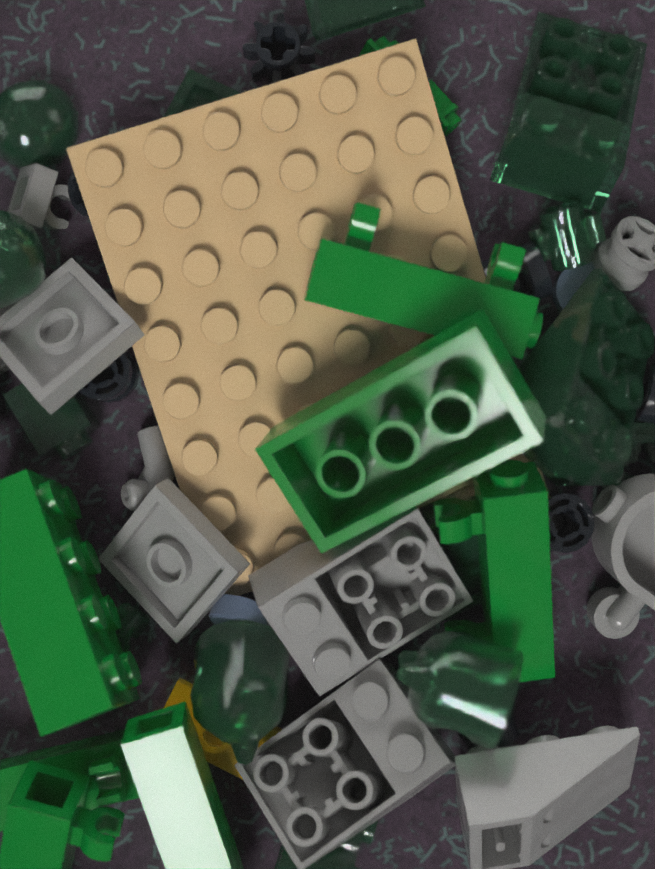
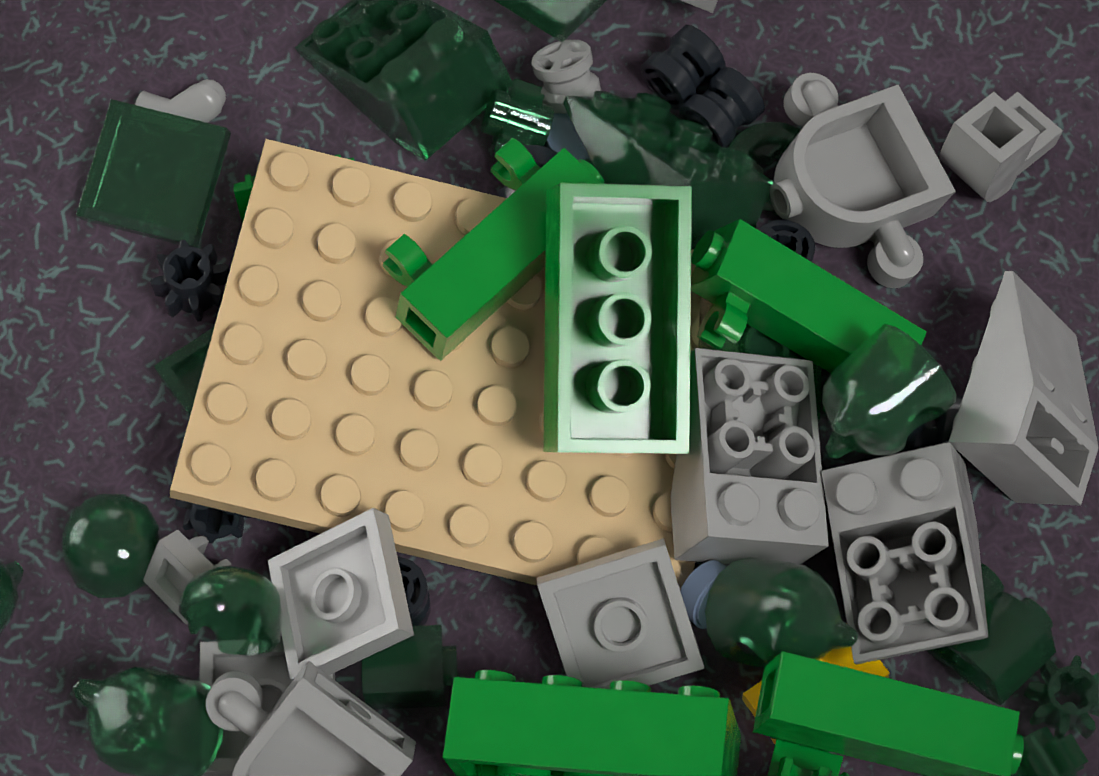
camera: 65 degrees left, 20 degrees down
(156, 468) = (523, 605): light grey arm -> none

